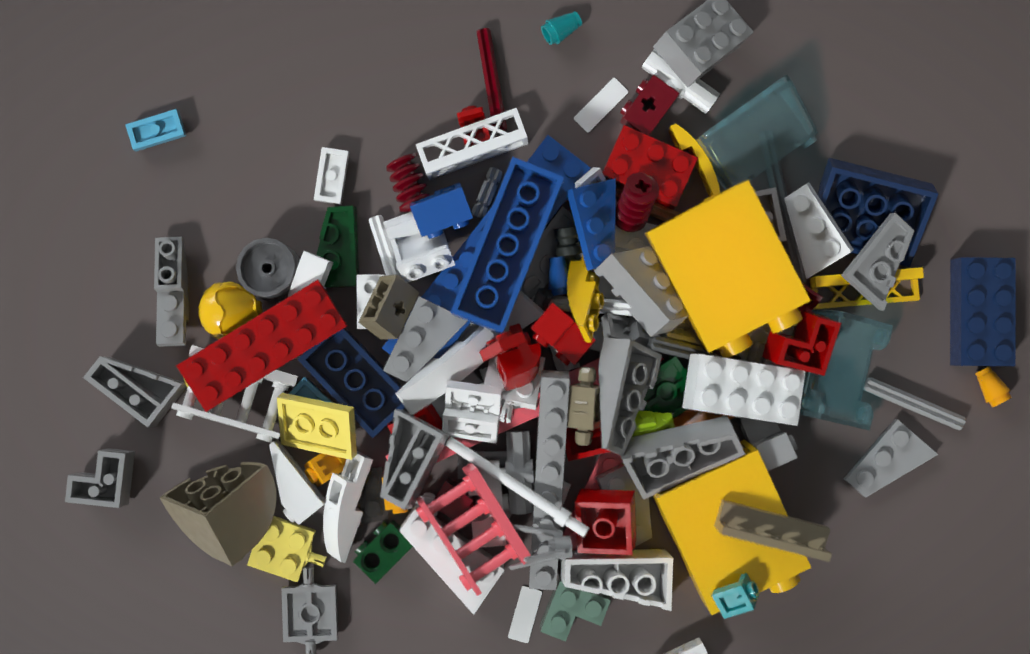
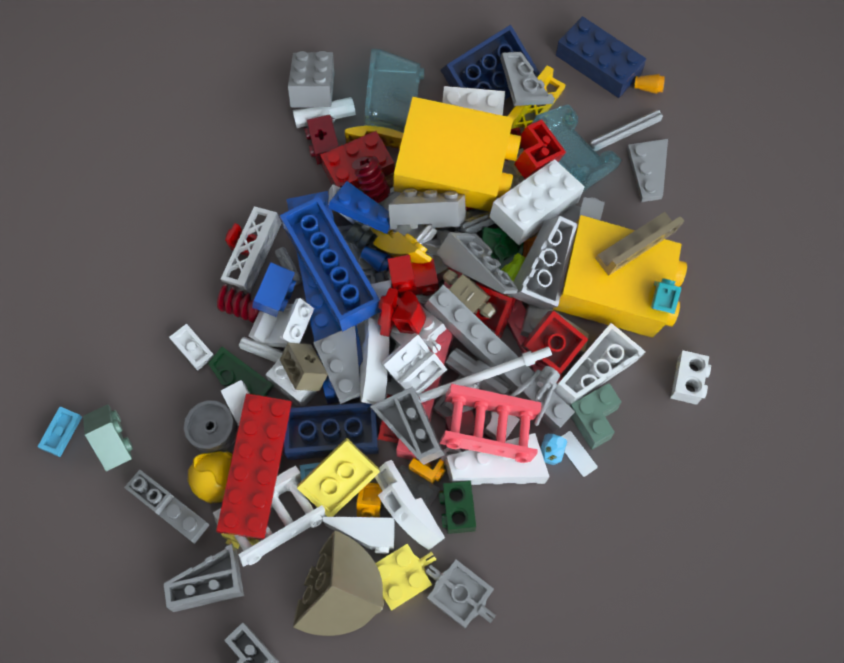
camera: 50 degrees left, 20 degrees down
(182, 179) = (104, 434): none -> brick
(490, 74) = (219, 209): dark red axle -> none
(507, 593) = (553, 448): none -> medium azure rock
(560, 27) = (232, 152): teal cone -> none
(601, 105) = (297, 166): white sticker -> none

